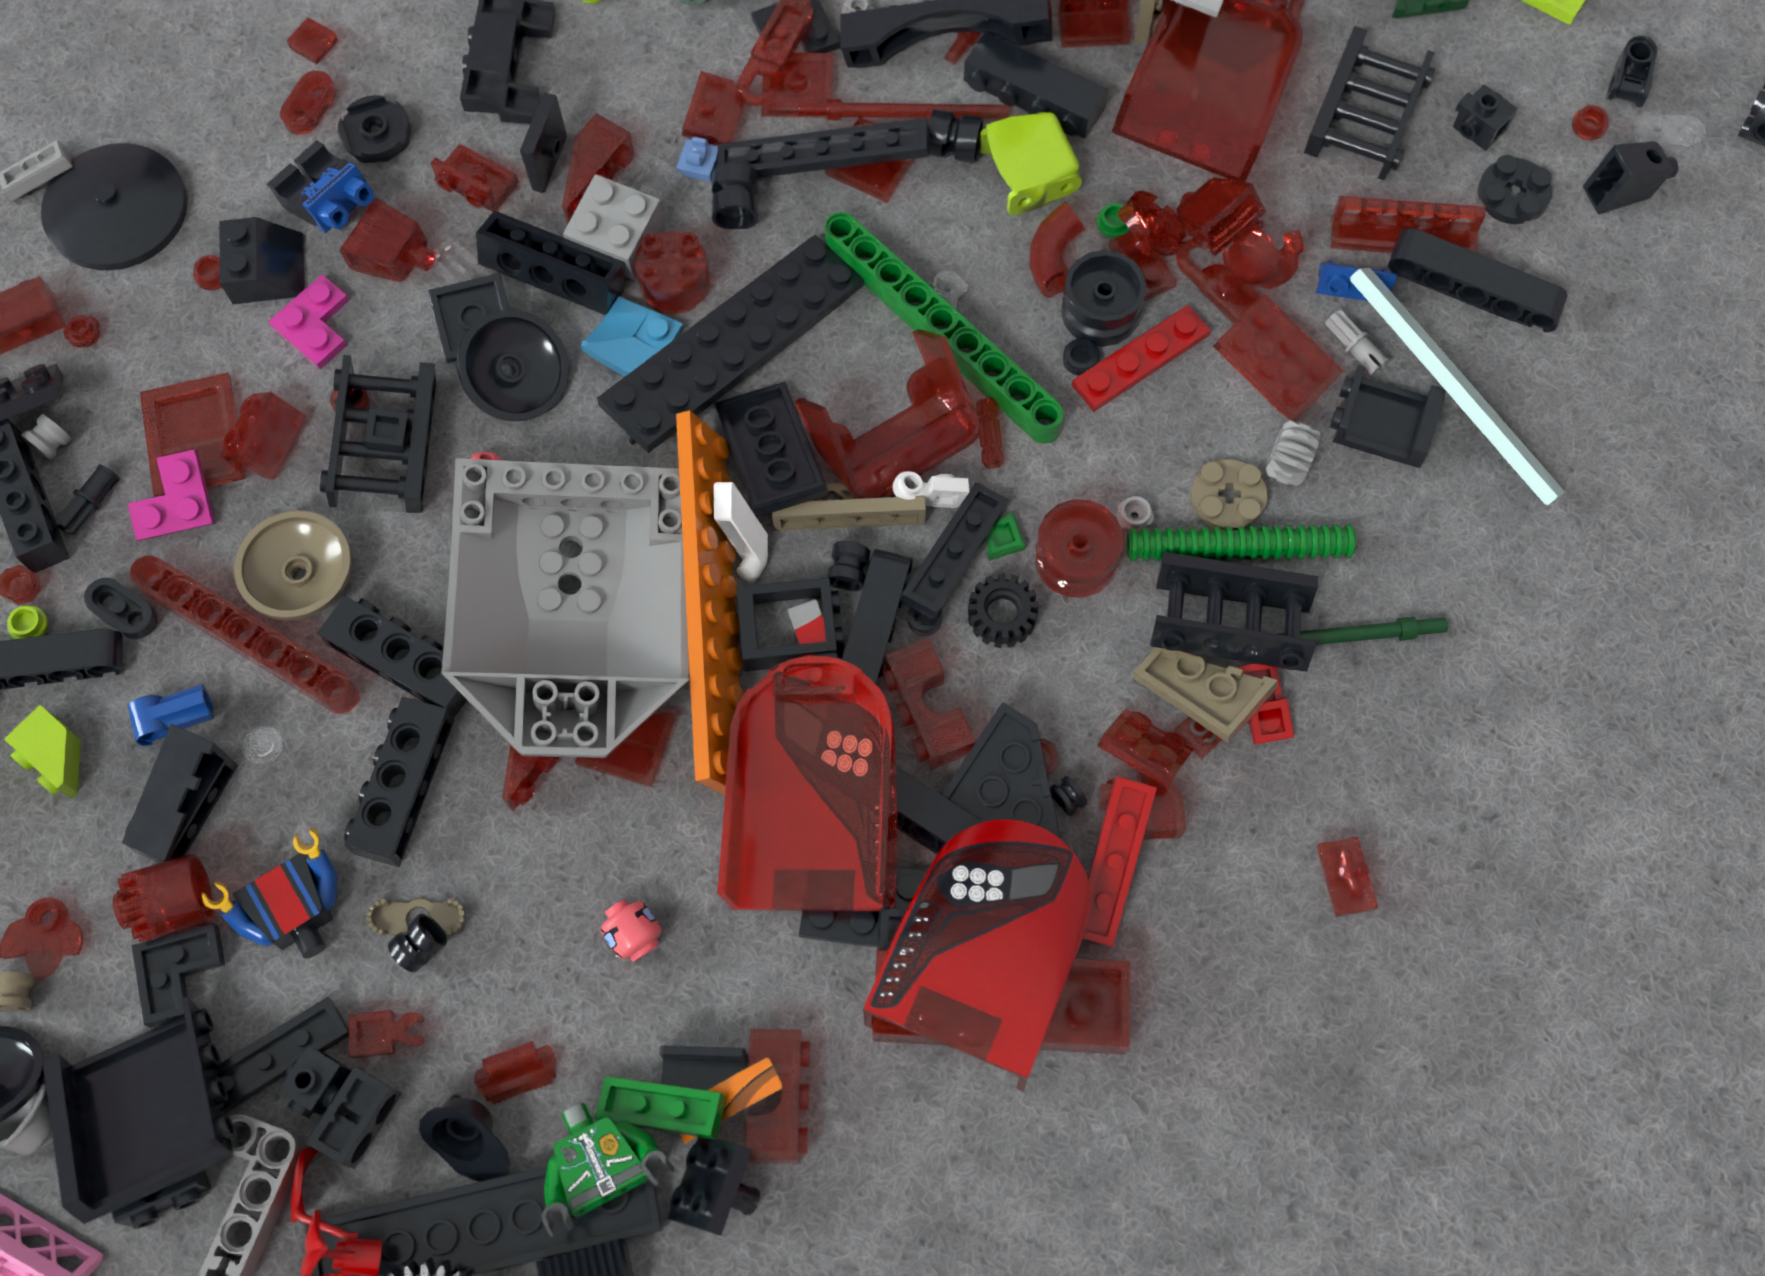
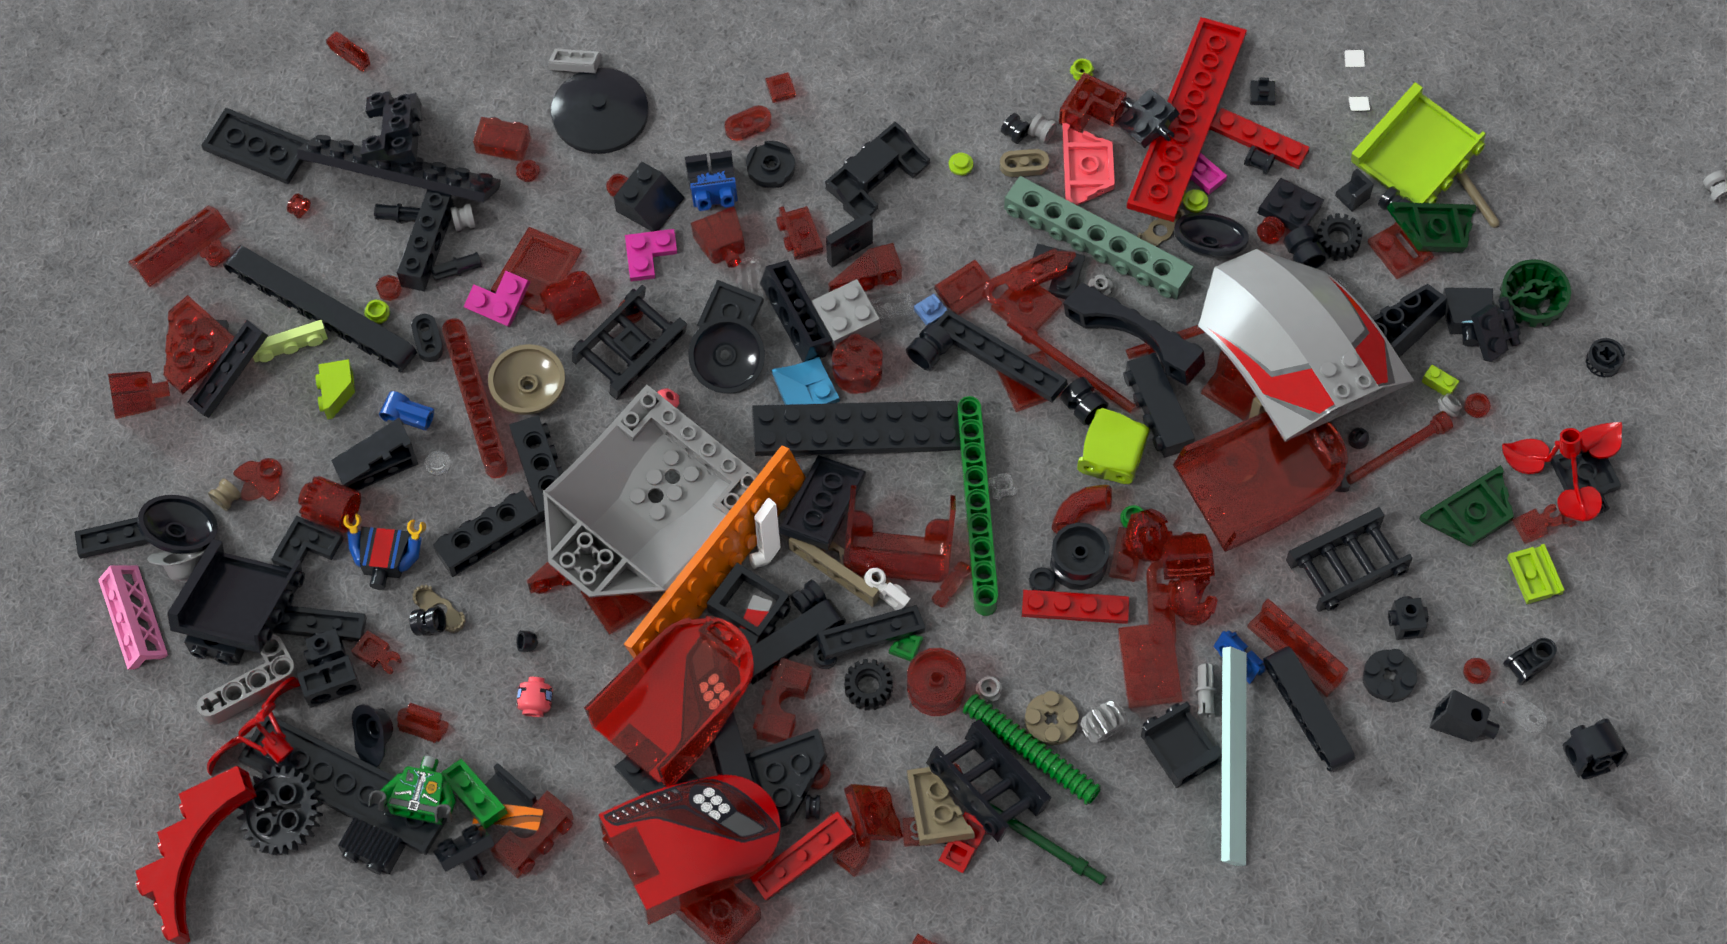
camera: 40 degrees right, 5 degrees down
(560, 865) = (526, 641): none -> black hinge

